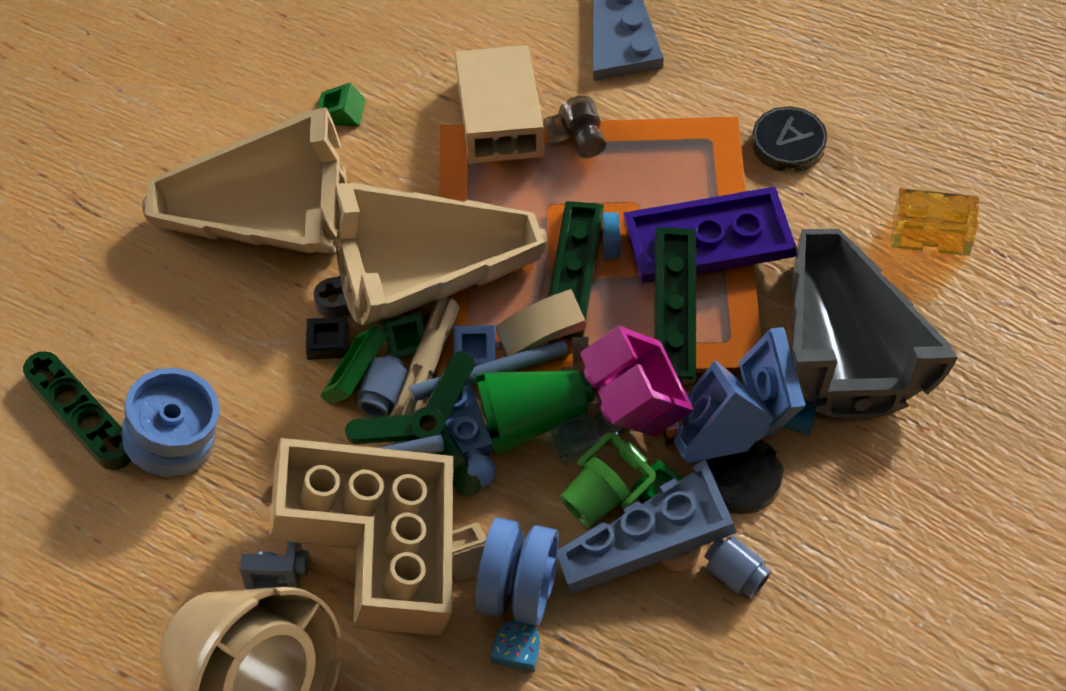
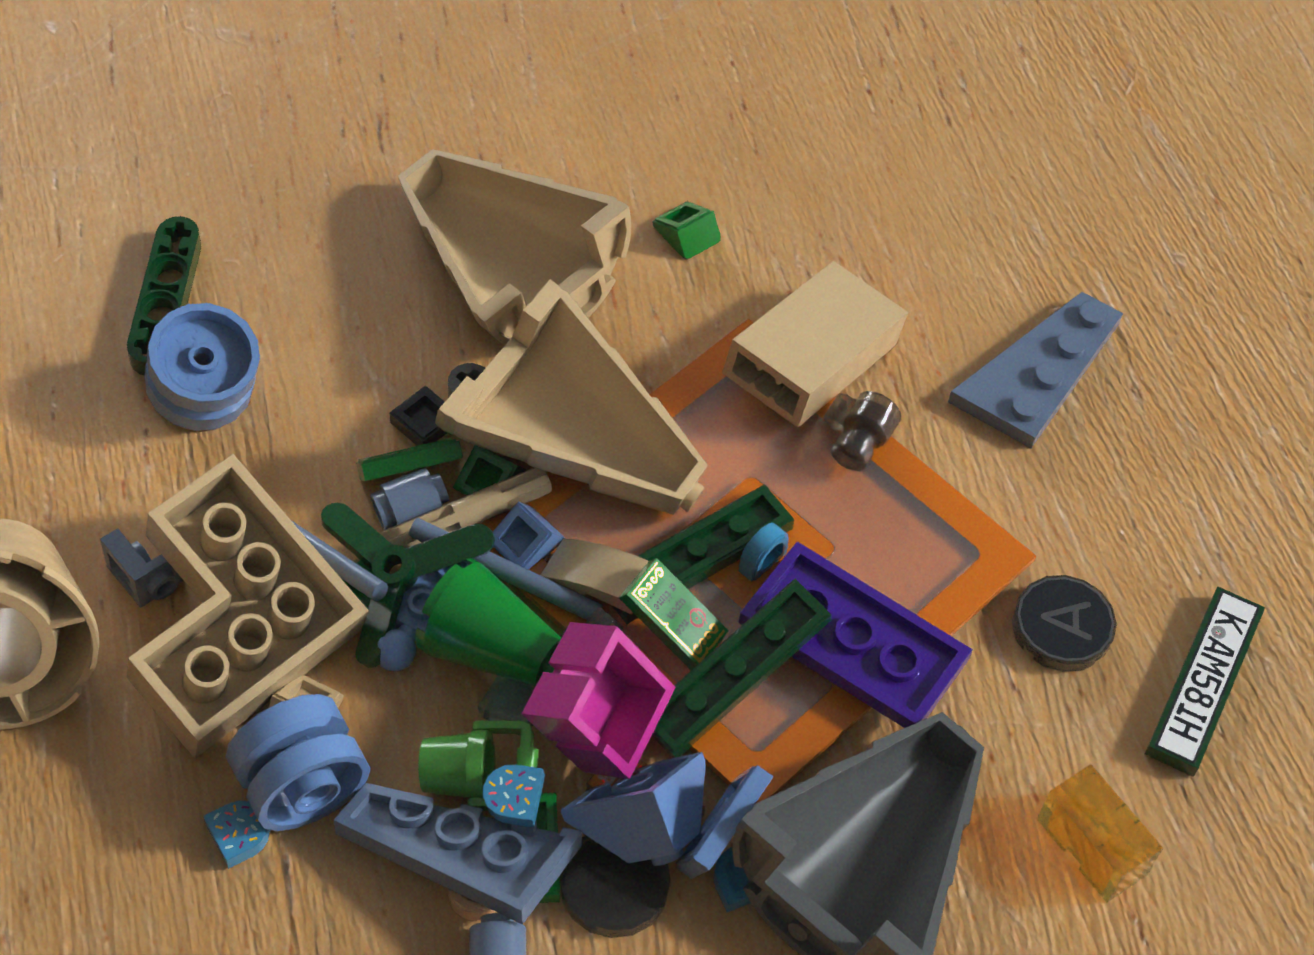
camera: 40 degrees right, 0 degrees up
(610, 306) = (673, 613): none -> tile
(651, 473) = (514, 794): none -> dark azure tile
(886, 107) = (1205, 681): none -> tile

